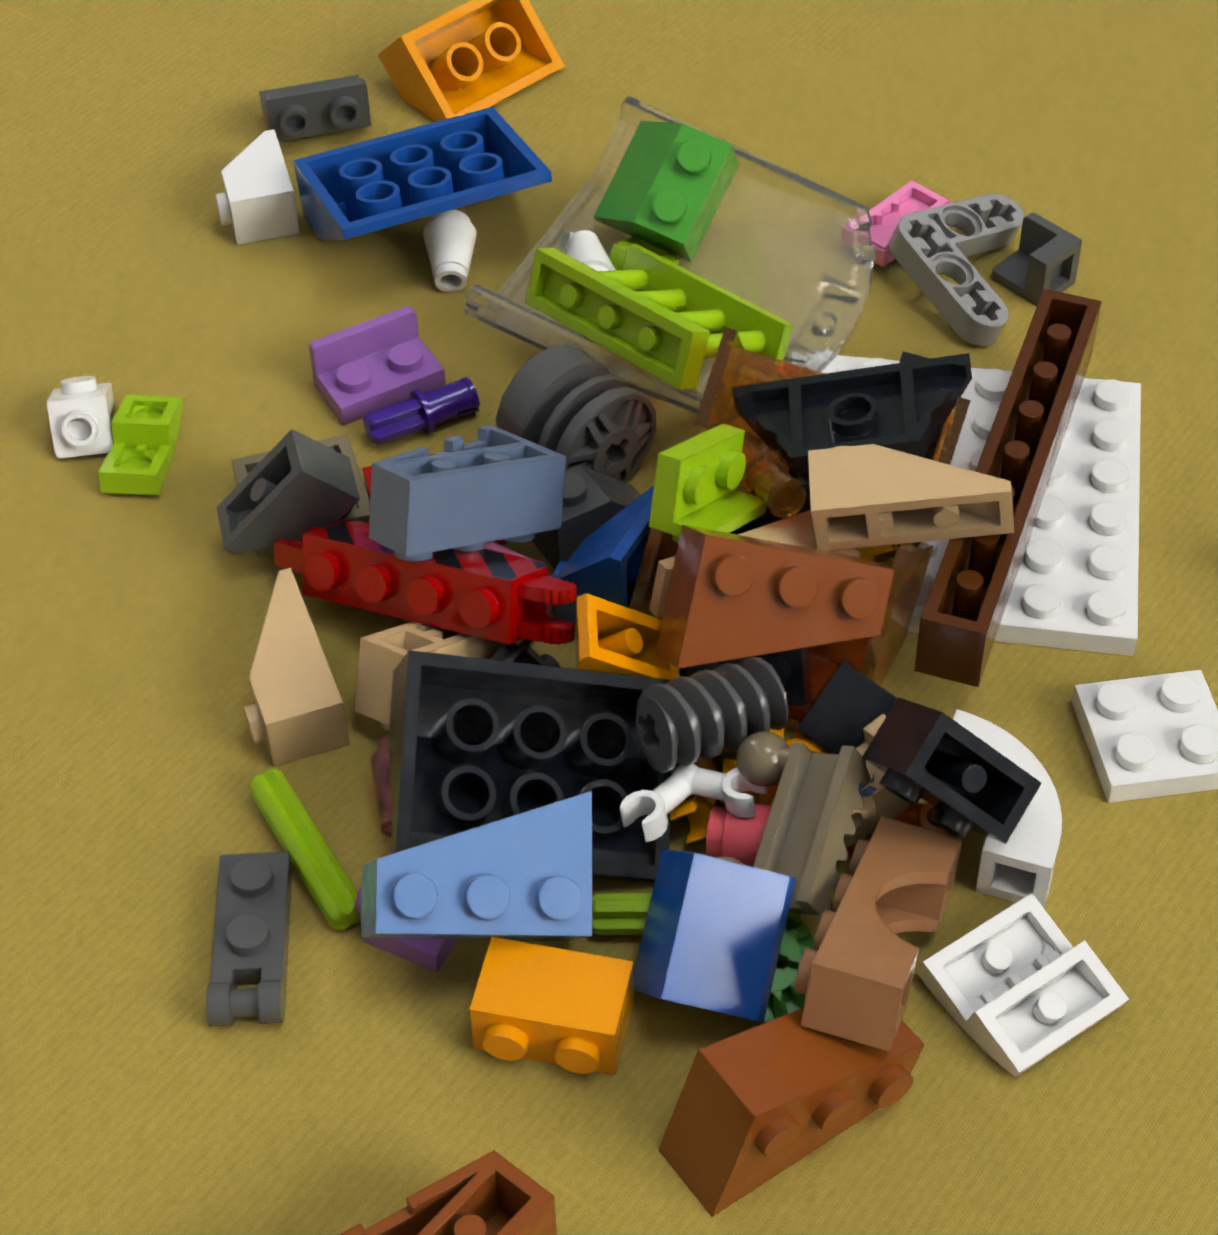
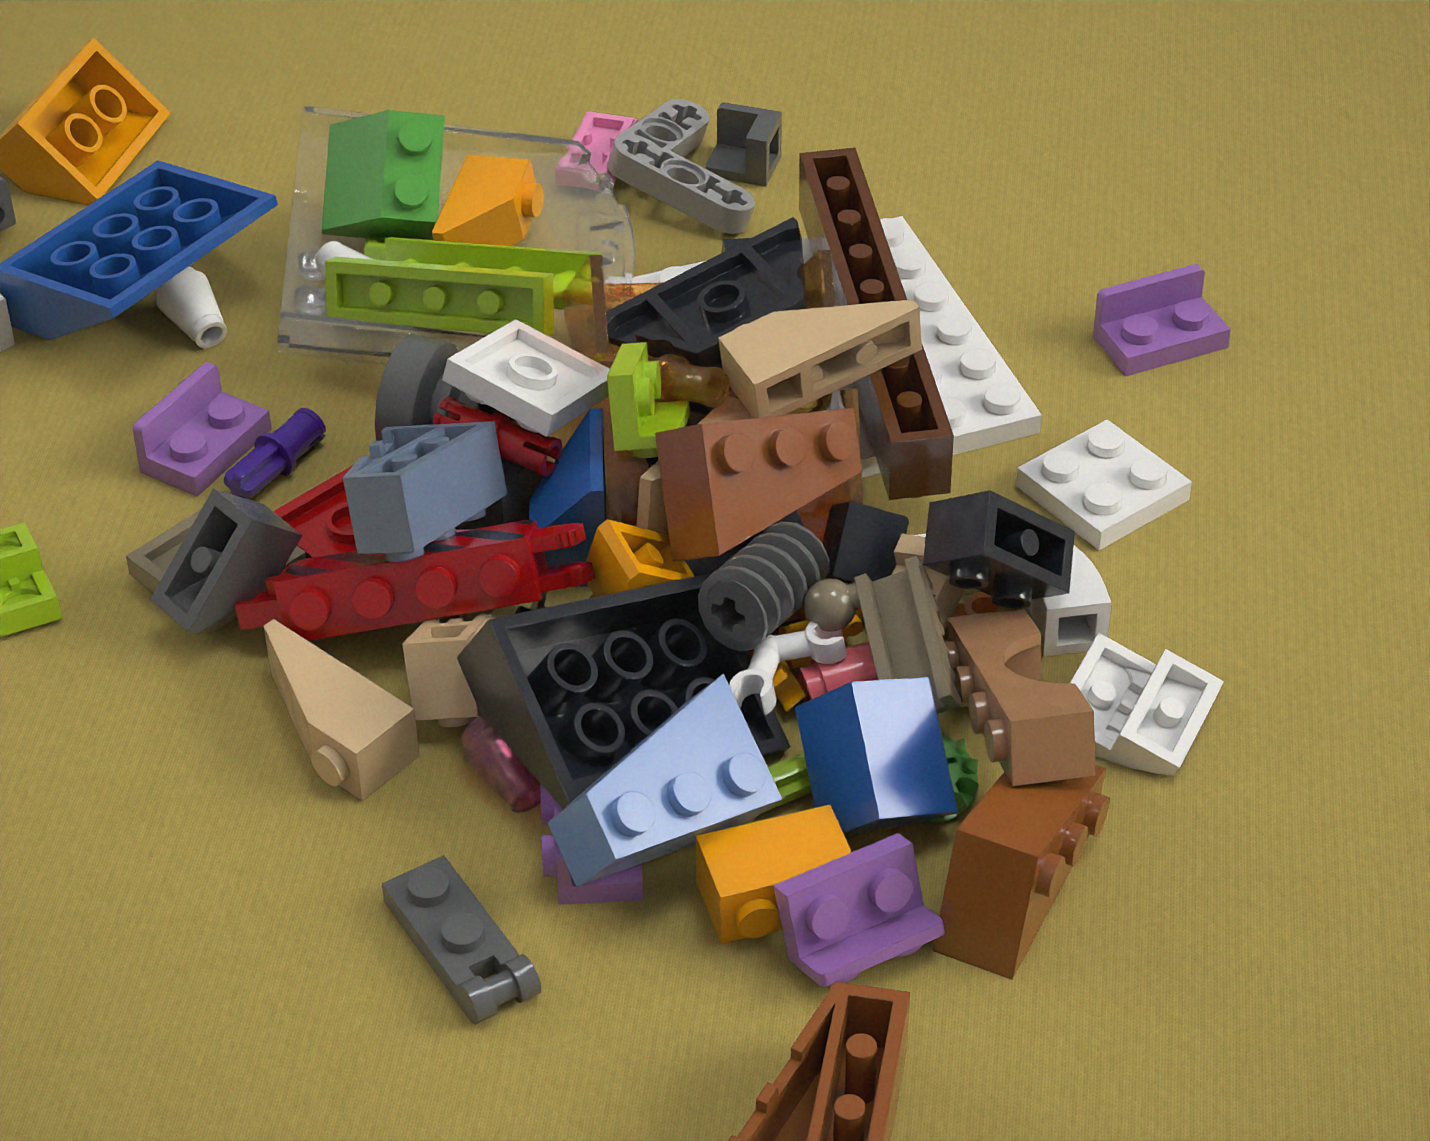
camera: 30 degrees left, 5 degrees down
(307, 848) = (465, 852): lime axle -> none
(582, 478) = (514, 442): none -> red pin
(591, 1082) = (856, 912): none -> medium lavender bracket
(618, 421) = (528, 377): none -> white plate
(743, 243) = (490, 202): none -> light orange slope

